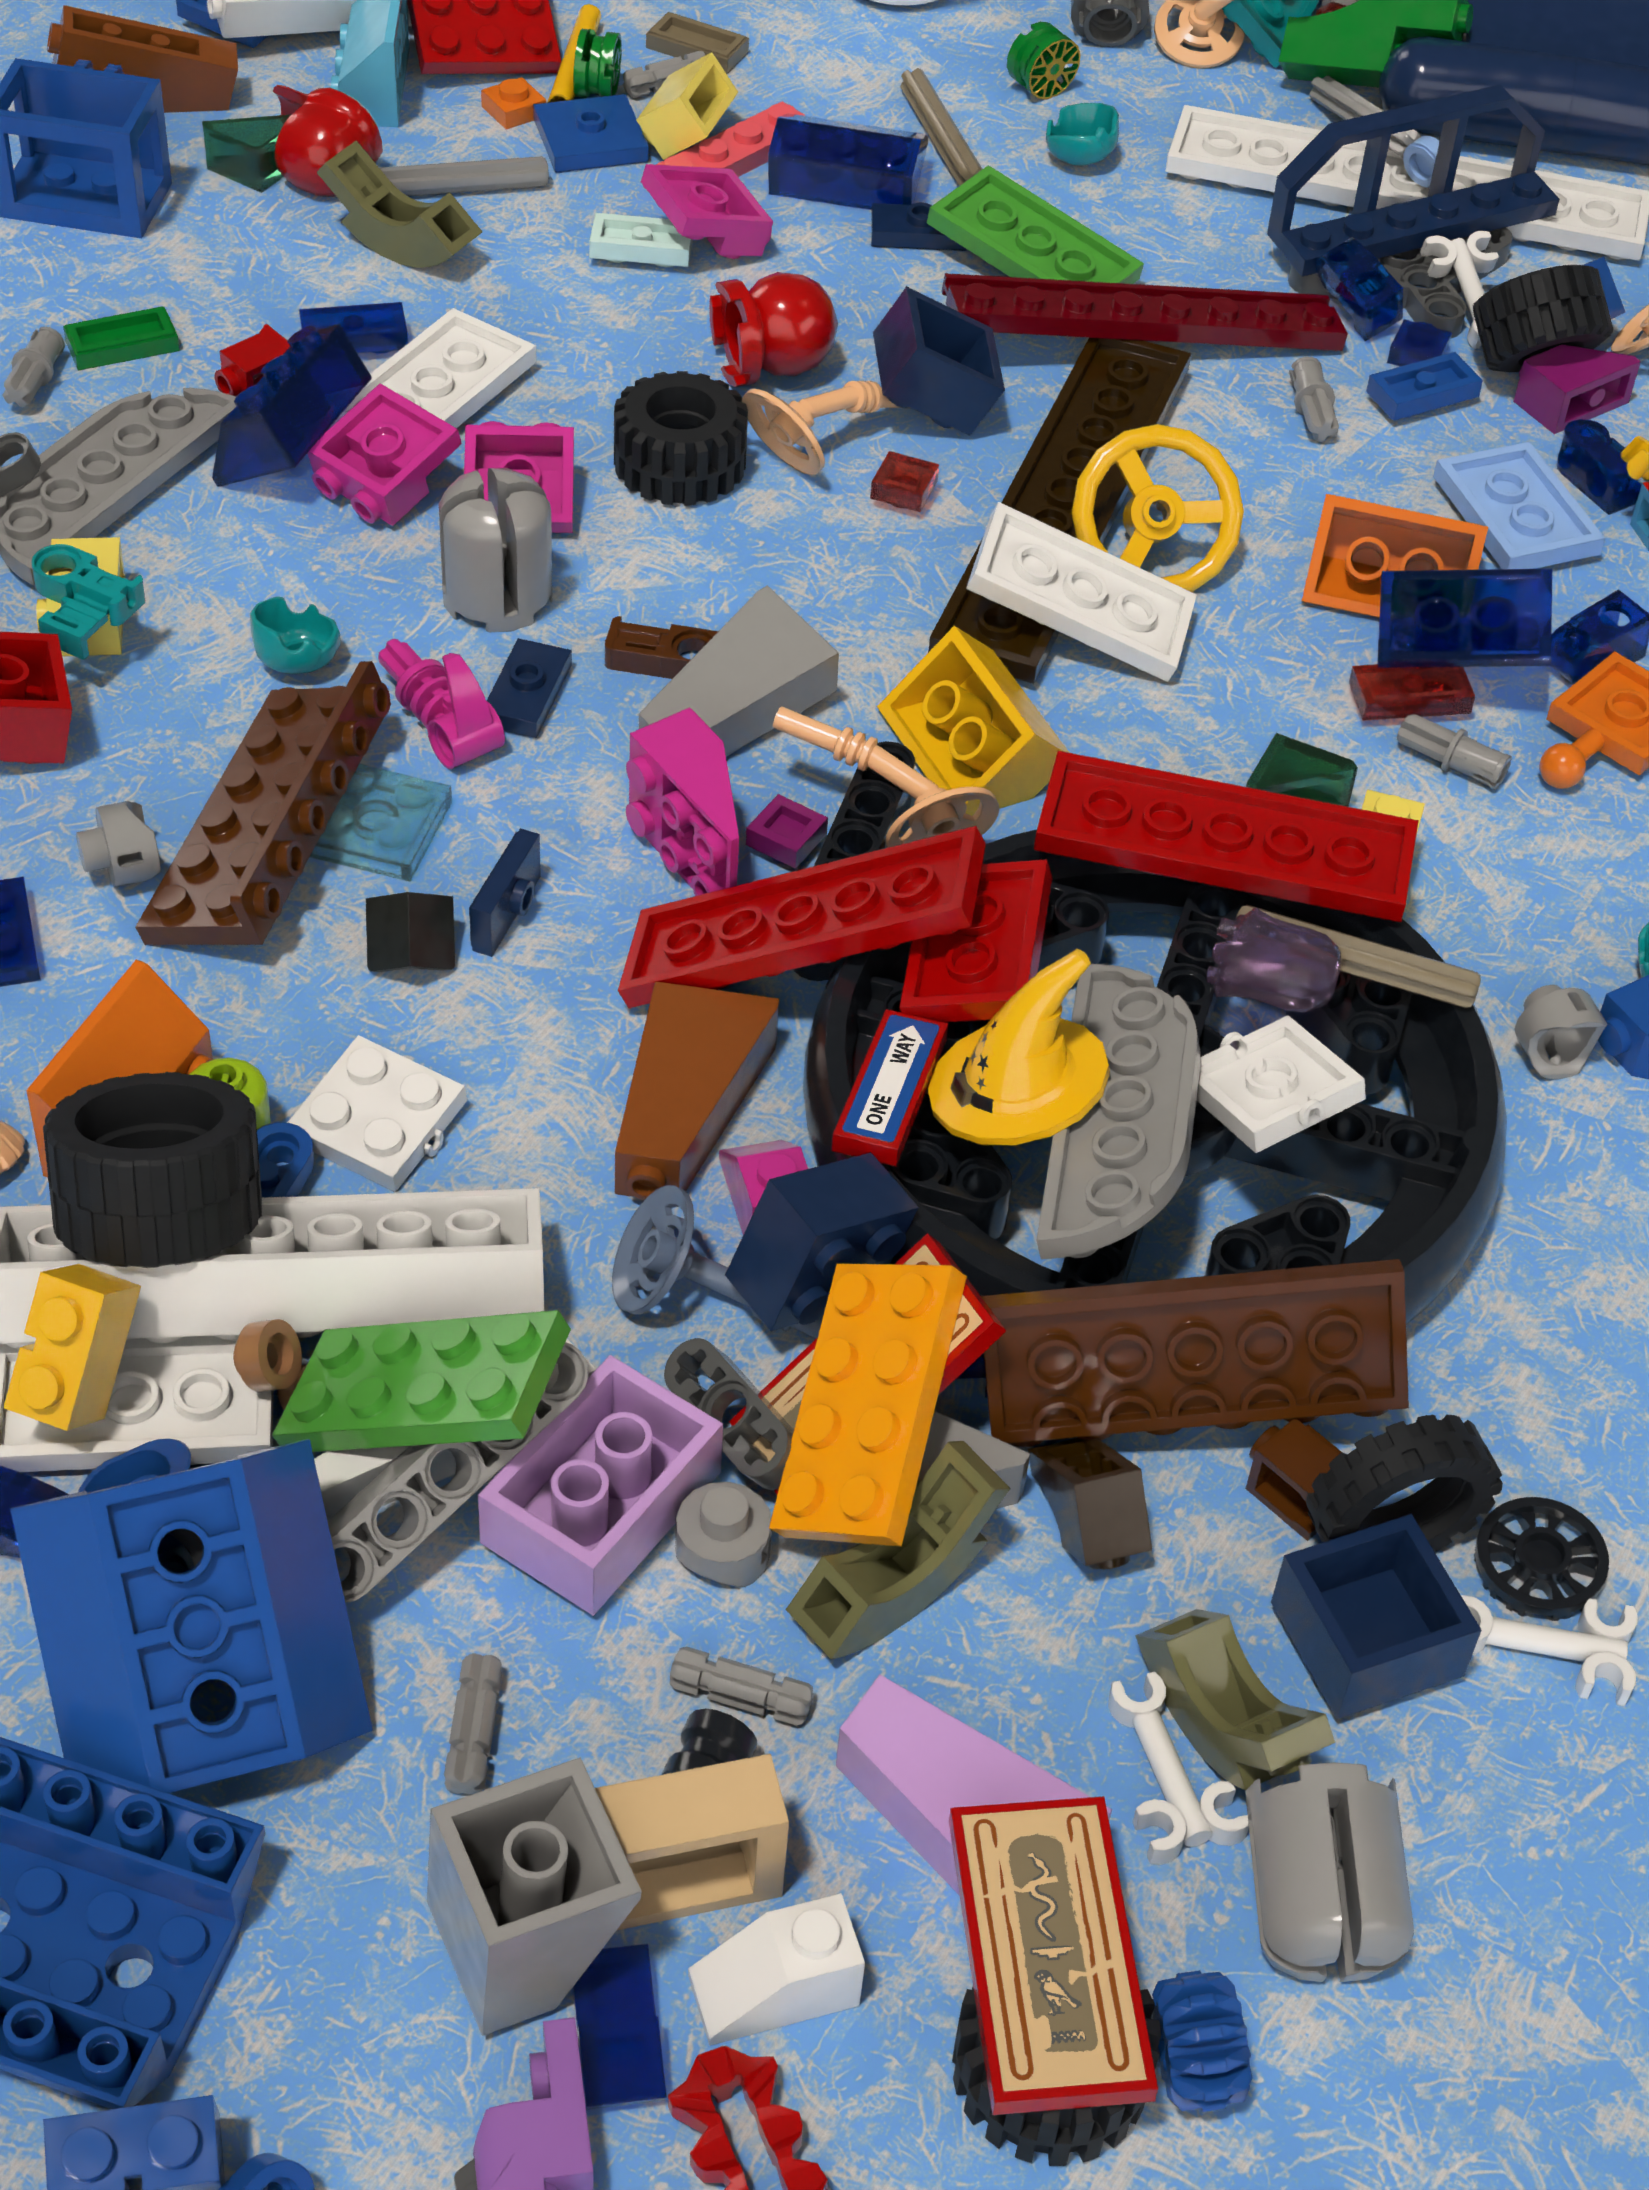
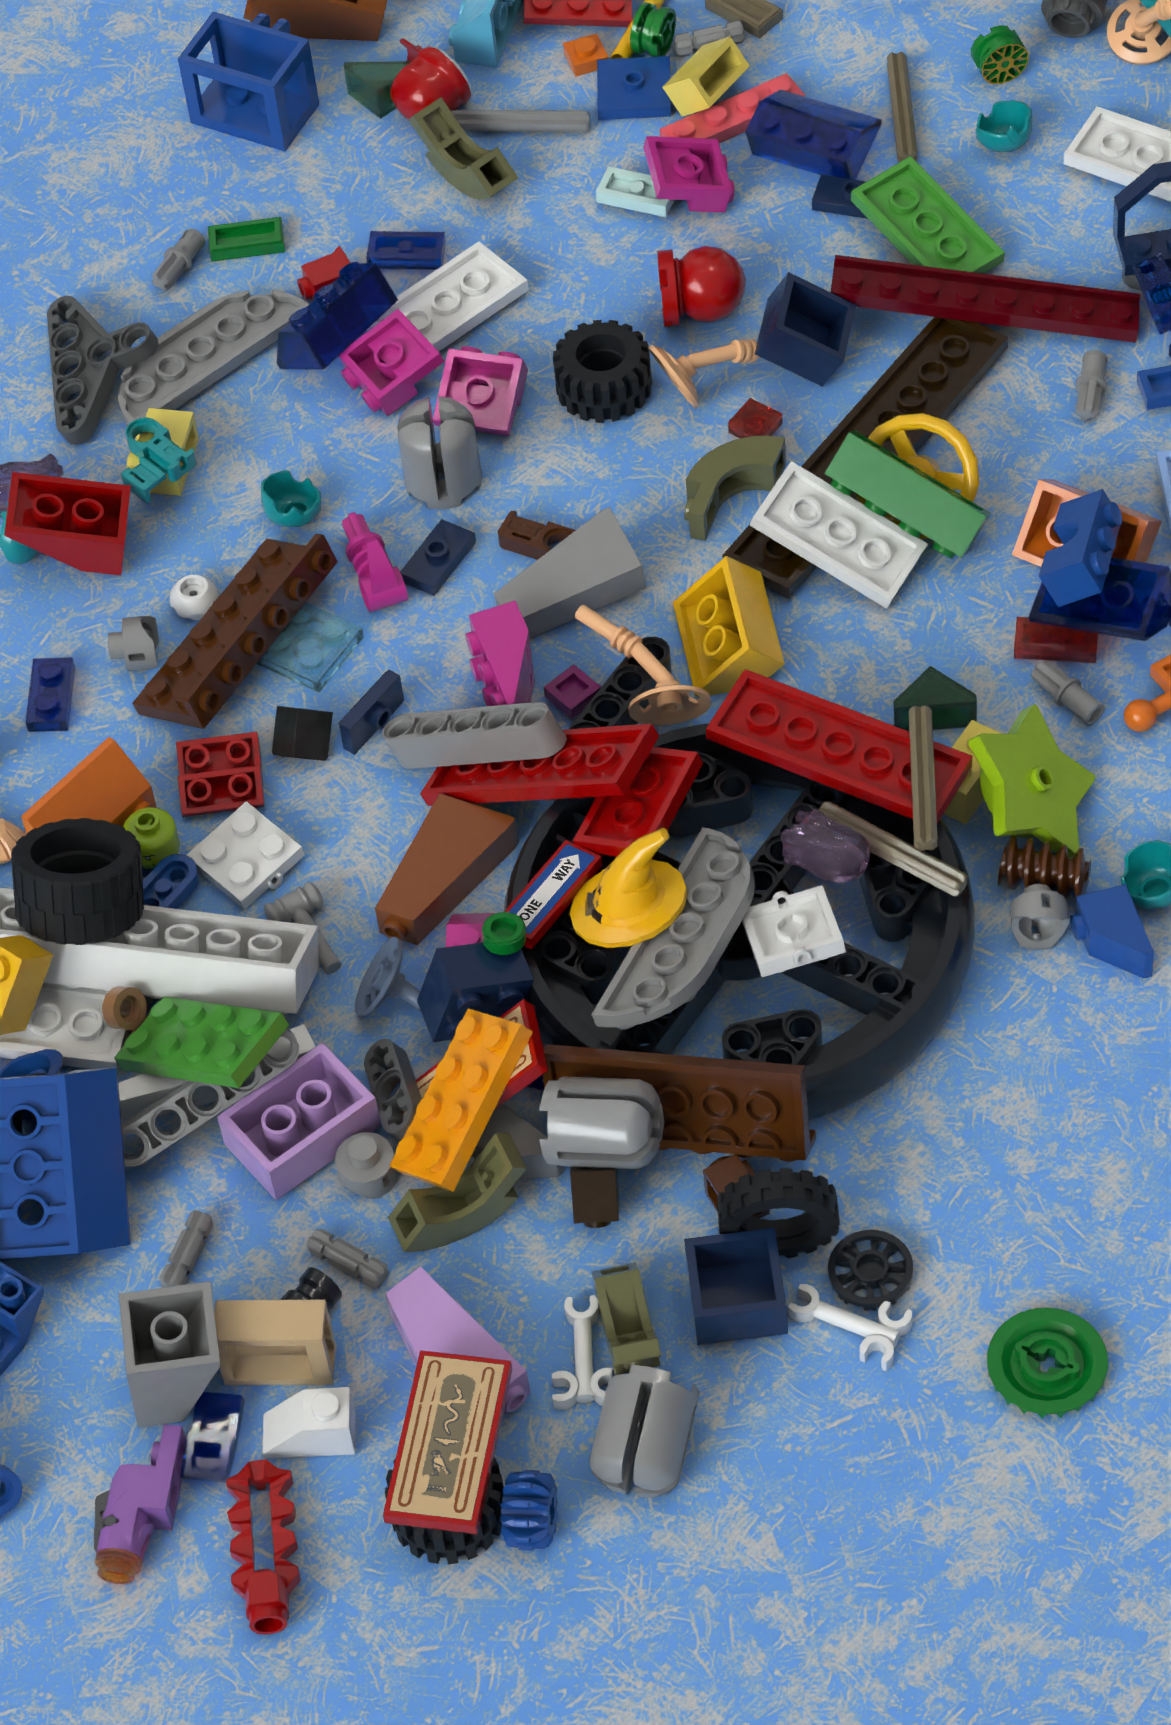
camera: 25 degrees right, 5 degrees up
(184, 776) = (193, 596): none -> white plate
(299, 1005) = (219, 773): none -> red slope
(487, 1169) = (296, 907): none -> light grey piece
(689, 892) = (474, 735): none -> light grey beam
(858, 1145) = (503, 933): none -> green tile
(900, 535) = (729, 470): none -> olive arch
(1110, 1398) = (601, 1122): none -> light grey cylinder
(1162, 530) = (907, 494): none -> green brick
(1373, 855) = (923, 778): none -> dark tan axle
(1432, 559) = (1089, 536): none -> blue arch
(1482, 859) = (1031, 782): none -> lime plate
(1536, 962) = (1044, 867): none -> reddish brown piece

